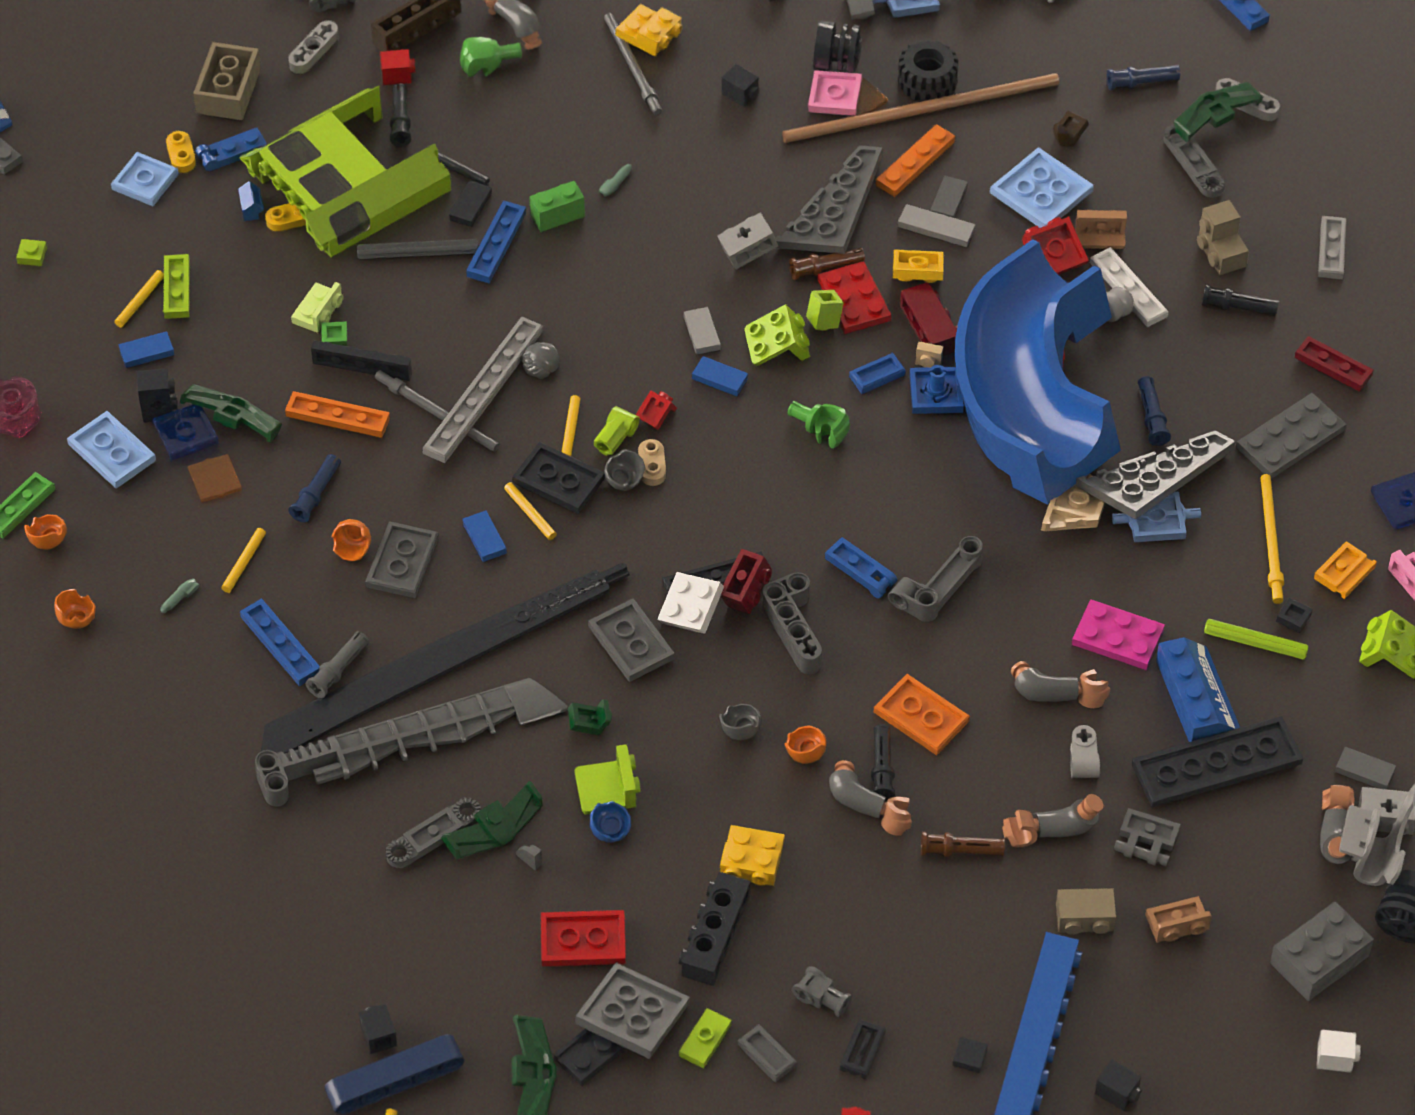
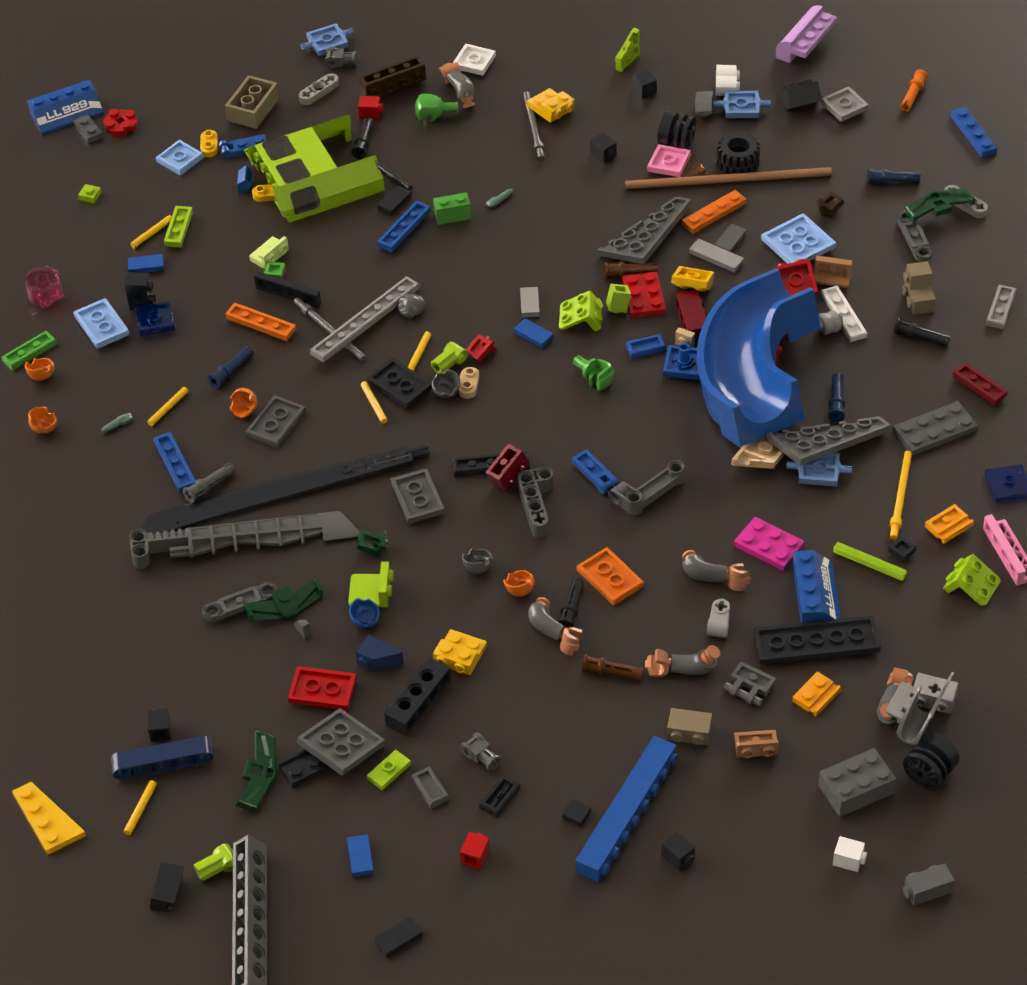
camera: 15 degrees right, 5 degrees down
(54, 136) = (126, 117): none -> red plate
(214, 478) = (165, 351): clear orange piece -> none
(232, 410) = (189, 309): dark green plate -> none
(419, 248) = (350, 224): dark grey axle -> none
(484, 536) = (337, 414): blue tile -> none
(645, 878) = (378, 655): none -> dark blue slope
(690, 602) = (465, 476): white plate -> none
(747, 240) = (577, 247): light grey brick -> none
(1235, 836) = (816, 693): none -> light orange plate
(1365, 768) = (926, 661): dark grey tile -> none

